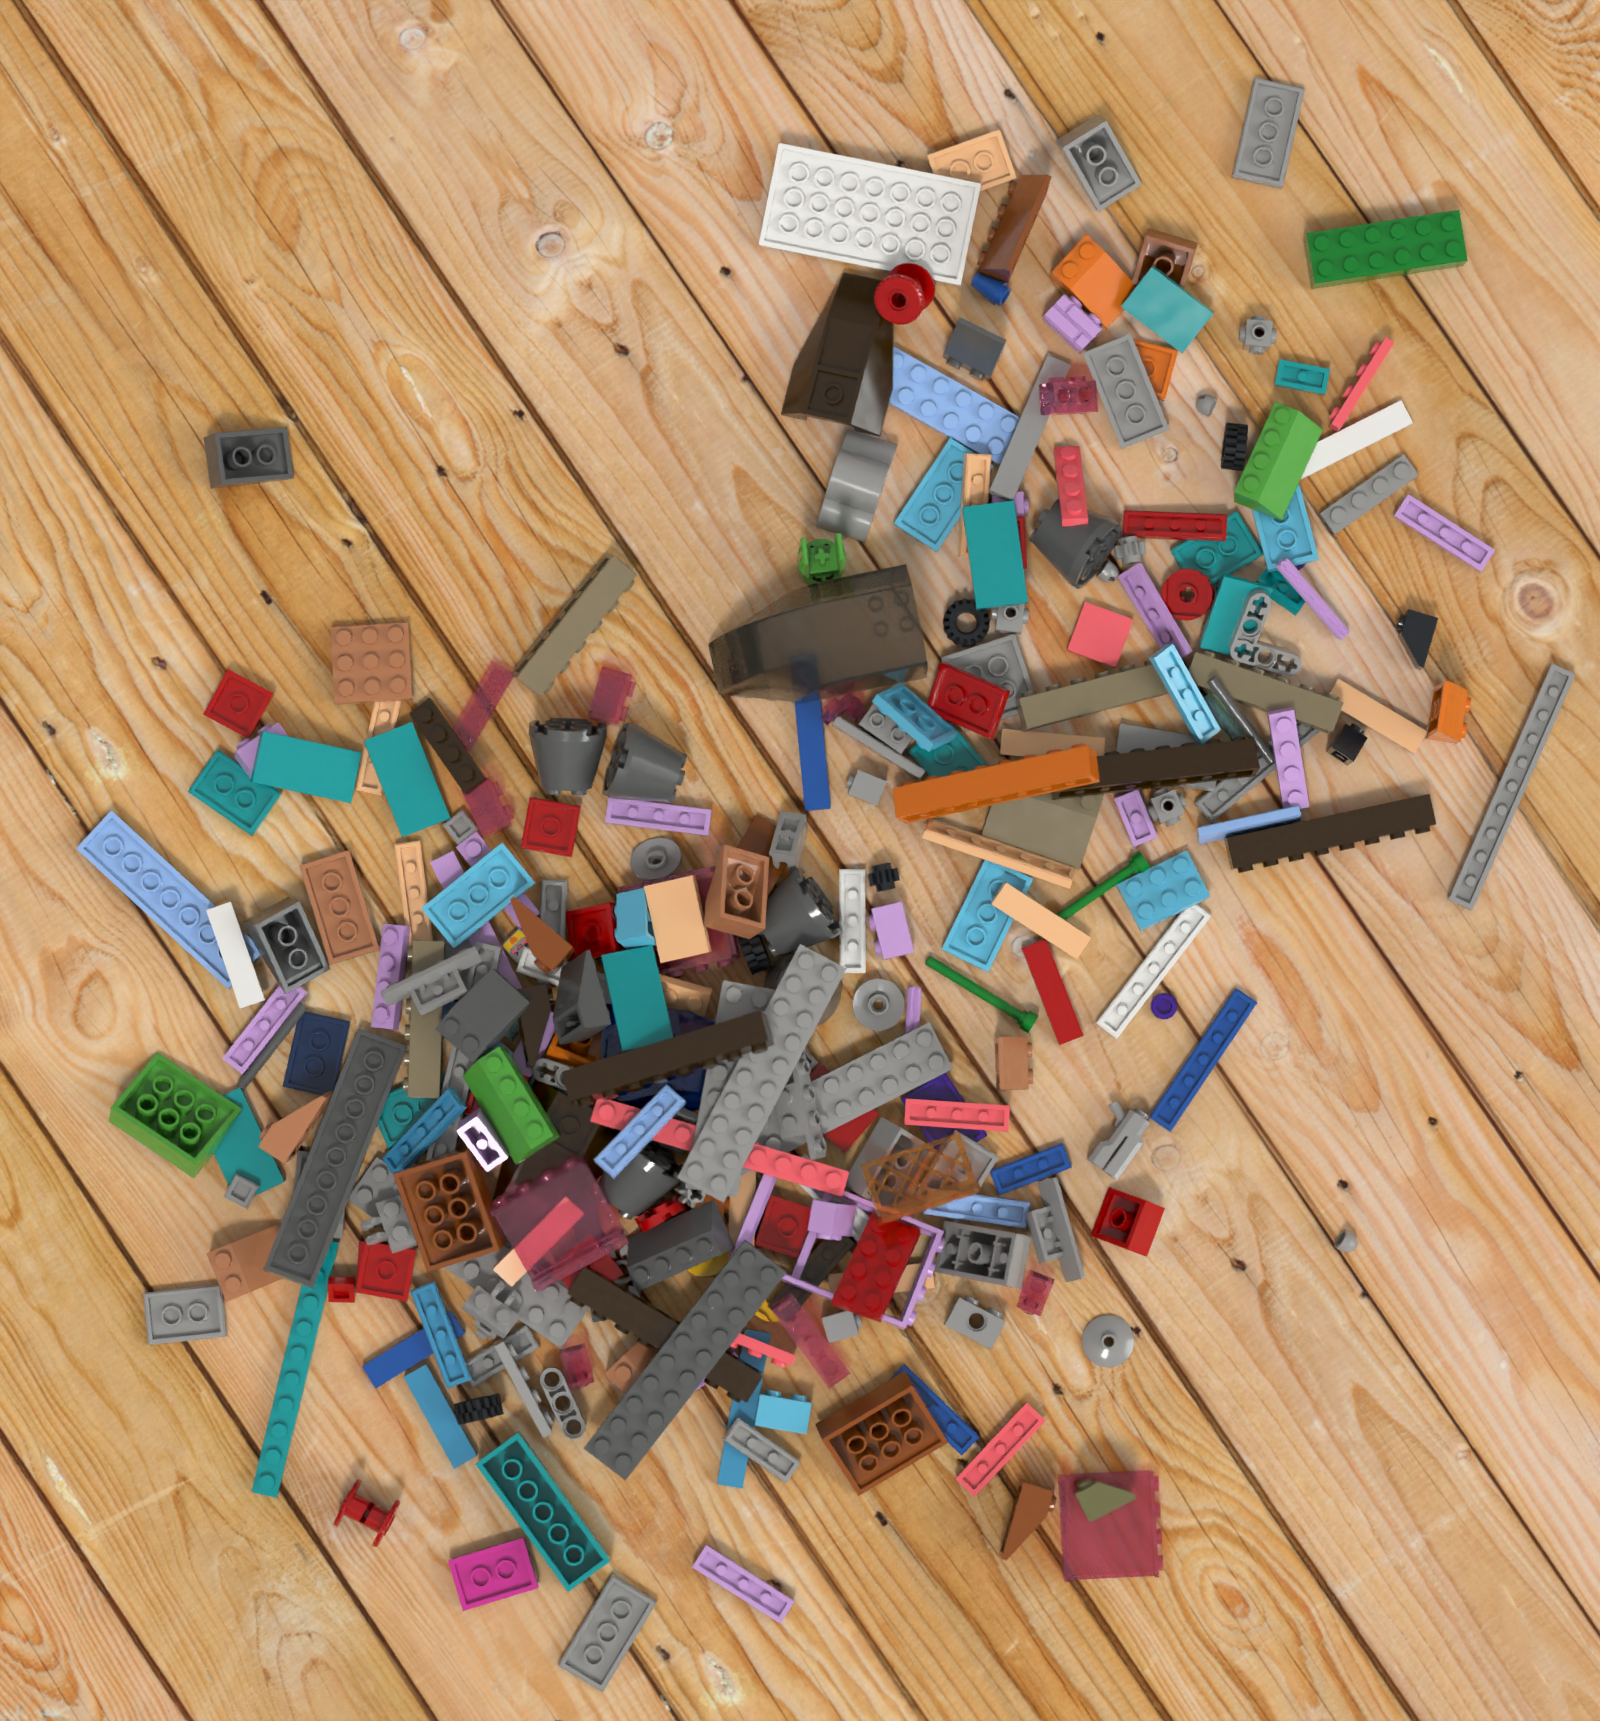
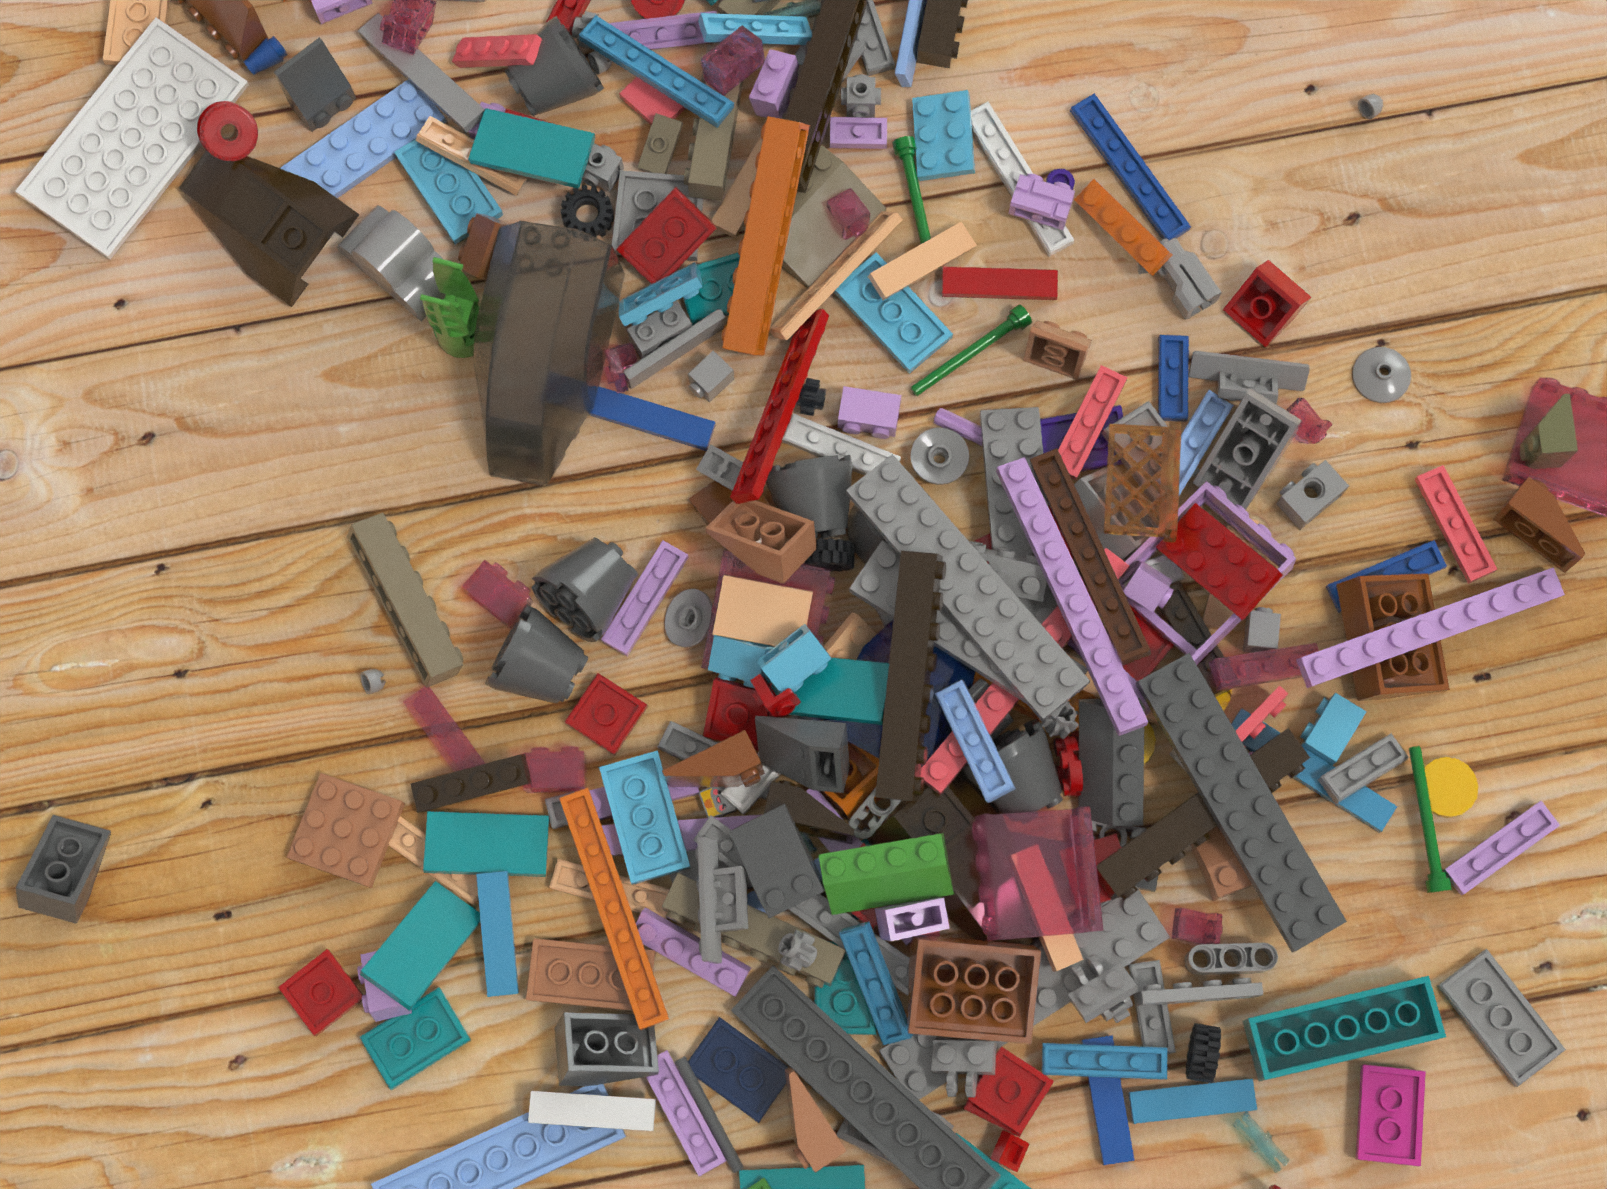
camera: 60 degrees left, 10 degrees down
(340, 820) = (497, 933): none -> dark azure tile
(397, 903) = (614, 909): none -> orange plate
(420, 1061) = (797, 950): none -> light grey gear
(430, 1481) = (1261, 1142): none -> clear light blue pin
(499, 628) = (371, 680): none -> light grey hinge
(607, 954) = (777, 705): none -> red bracket
(645, 961) = (794, 660): none -> medium azure brick
(695, 1542) = (1437, 879): none -> green piece
(775, 1523) = (1450, 787): none -> yellow tile
(791, 1158) = (1072, 597): none -> lavender plate
(832, 1160) = (1090, 557): none -> reddish brown plate
(855, 858) = (779, 409): none -> red plate
(896, 1459) = (1429, 627): none -> lavender plate
(897, 551) = (480, 245): none -> dark orange slope
(1052, 657) = (660, 144): none -> dark tan plate
(1054, 842) = (849, 213): none -> clear pink bracket
(1109, 627) = (656, 71): none -> dark azure tile
(1134, 998) = (1042, 201): none -> lavender brick
(1141, 689) = (733, 60): none -> clear pink brick
(1141, 1075) = (1123, 227): none -> orange plate
(1142, 731) = (774, 84): none -> lavender brick

